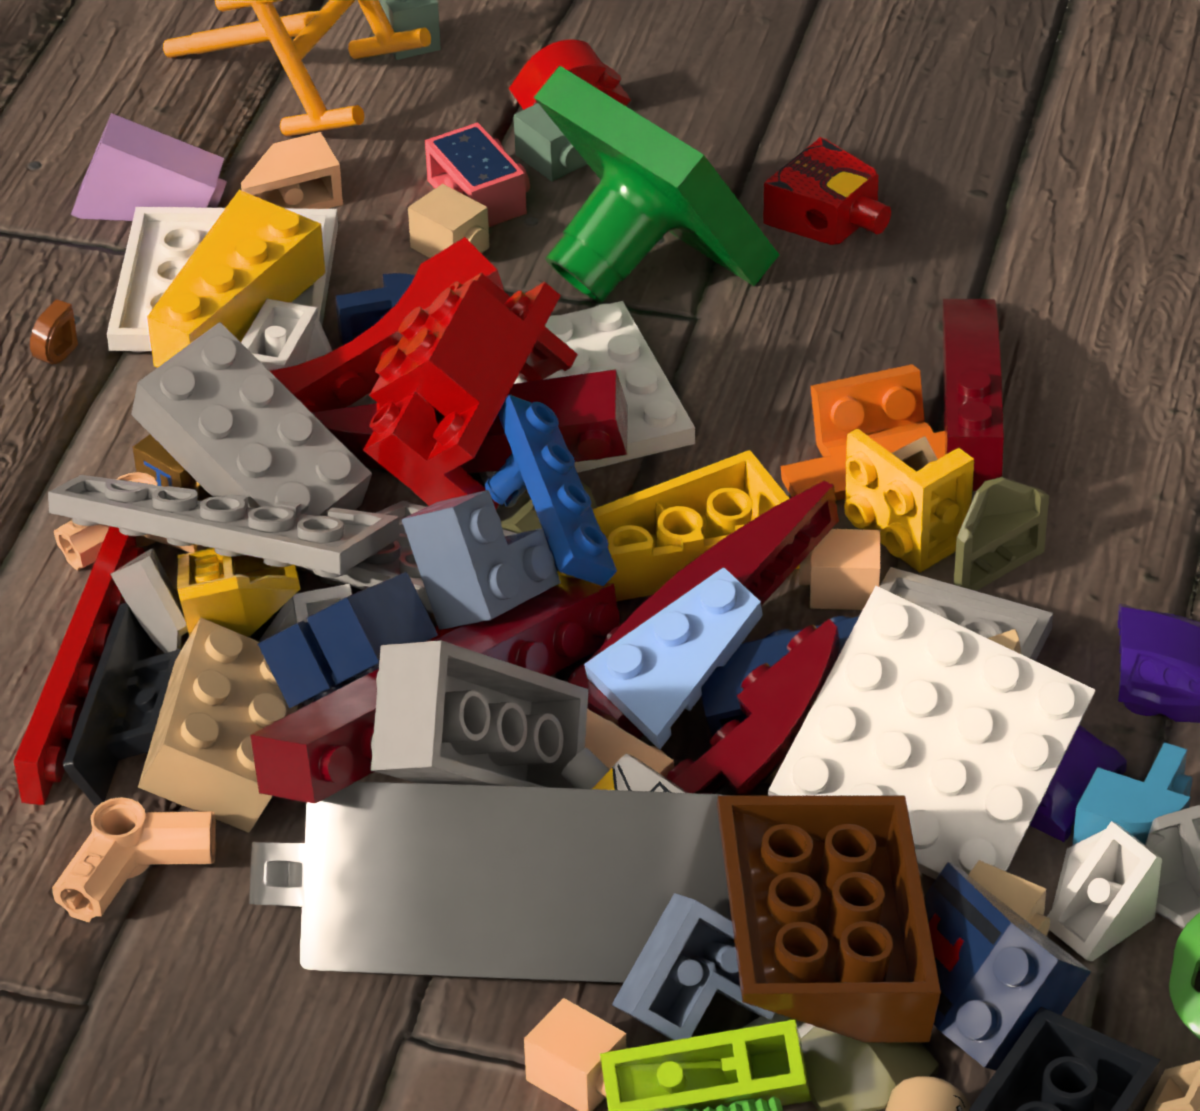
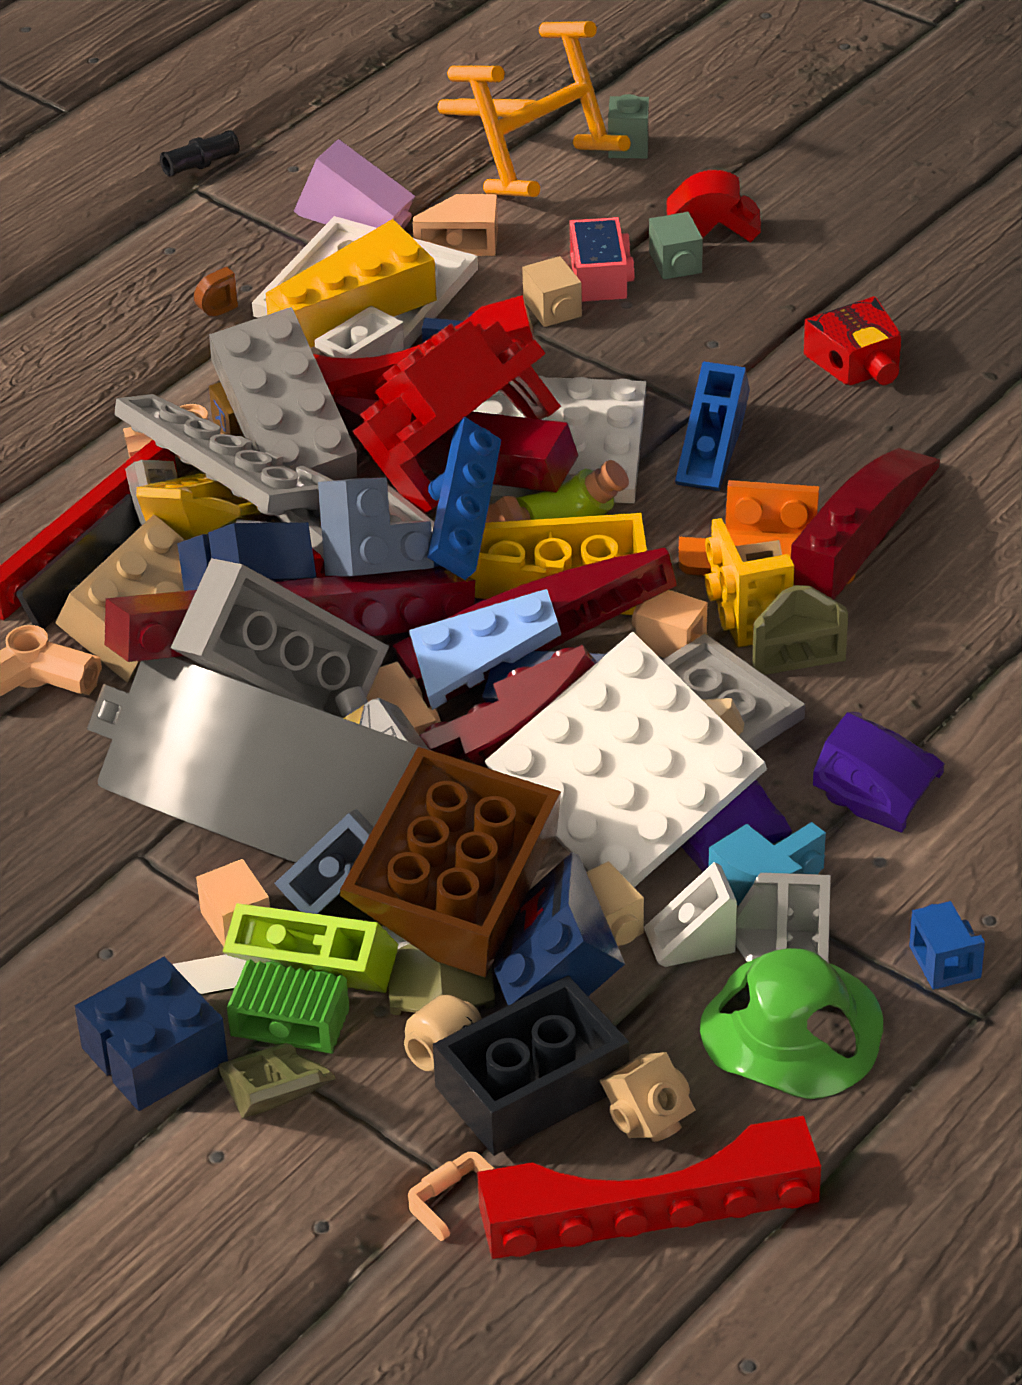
camera: 25 degrees right, 0 degrees up
(645, 190) = (685, 304): green piece -> none
(651, 456) = (583, 495): none -> piece
(737, 330) = (713, 425): none -> blue slope

